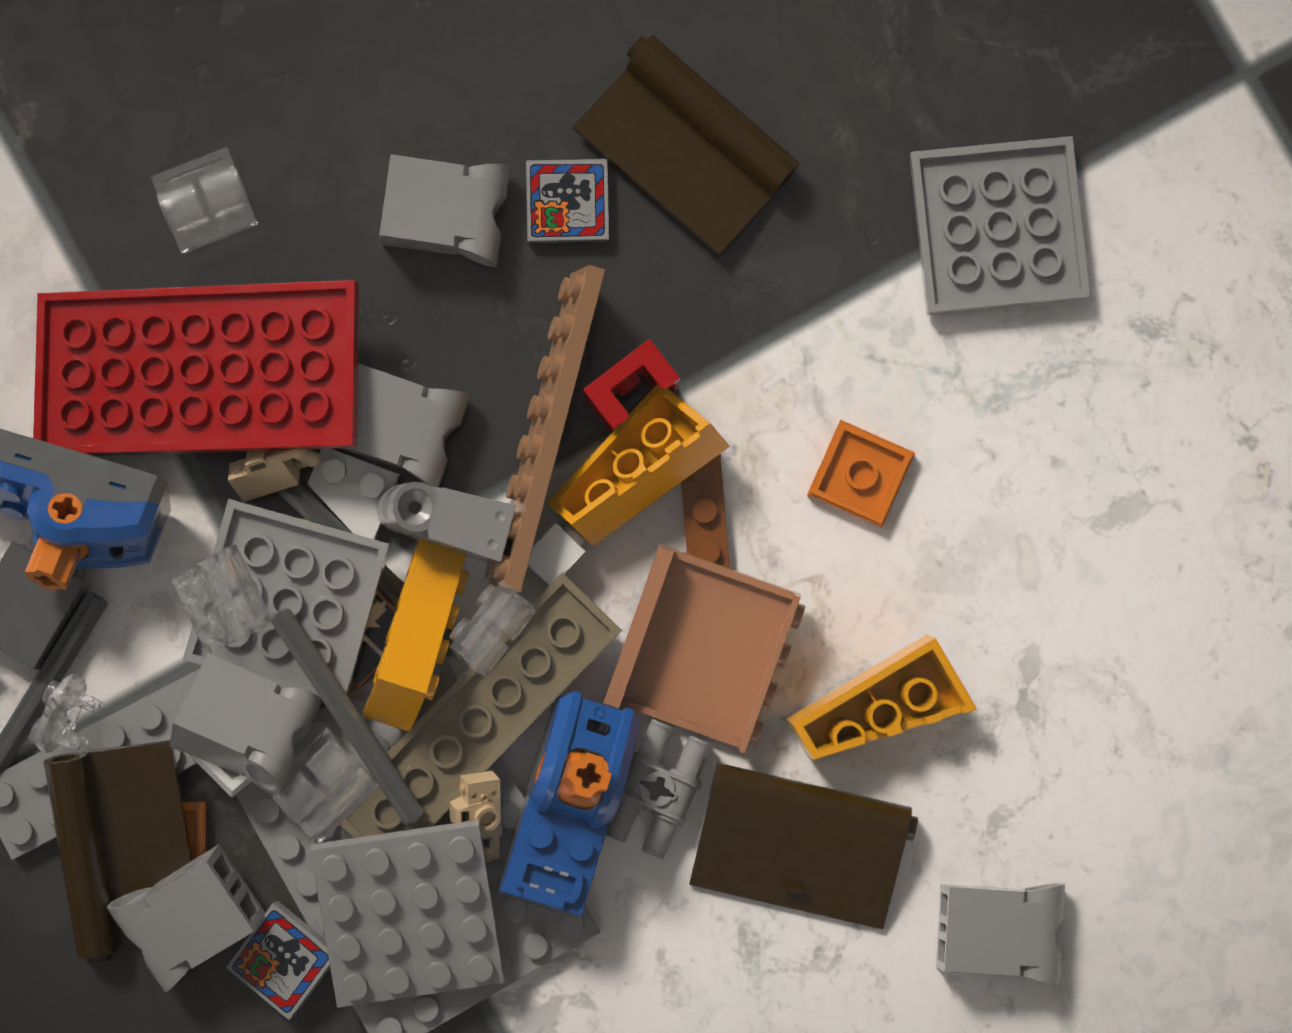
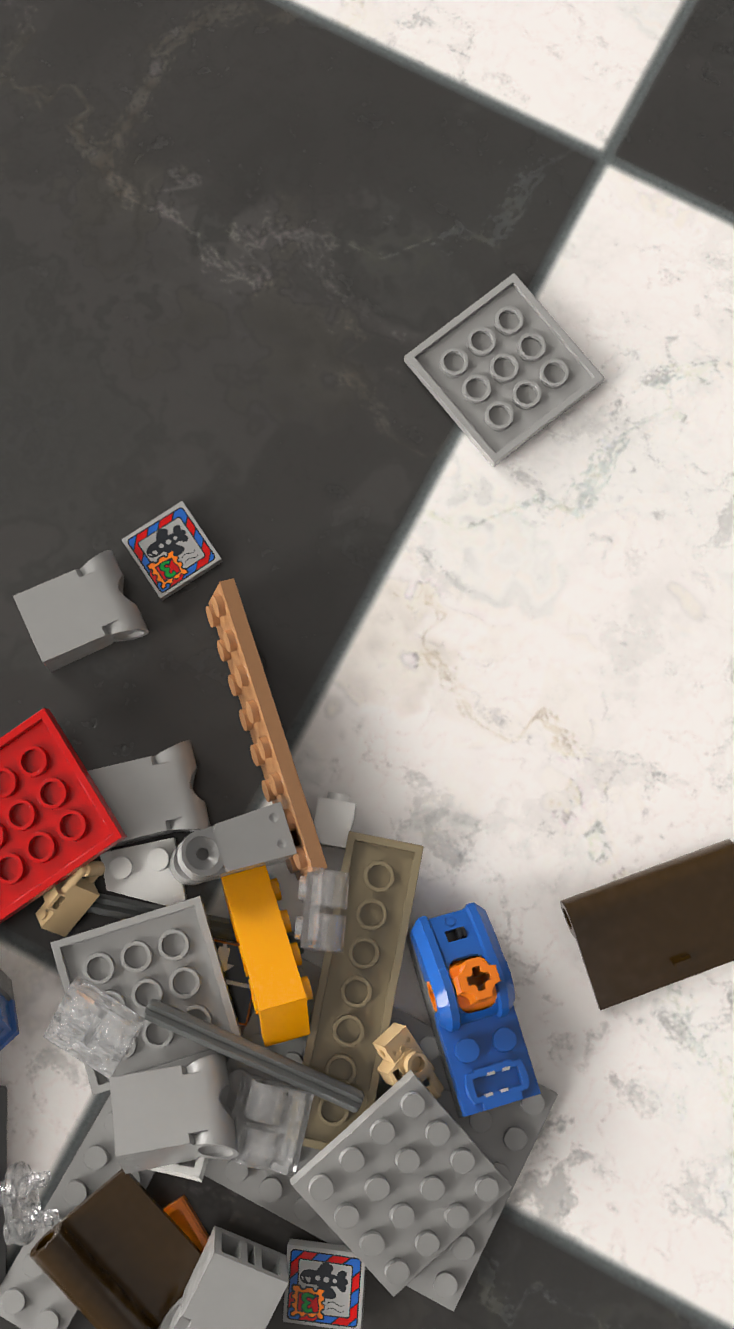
camera: 30 degrees left, 5 degrees down
(623, 378) = (308, 631): red panel -> none
(637, 465) = (352, 712): light orange wedge -> none
(680, 781) = (542, 934): light grey pin -> none
(686, 145) = (234, 454): dark brown door -> none
(705, 514) = (424, 716): dark orange plate -> none
(705, 648) = (494, 819): nougat panel -> none
(861, 473) = (522, 613): orange tile -> none
(891, 697) = (655, 771): light orange wedge -> none

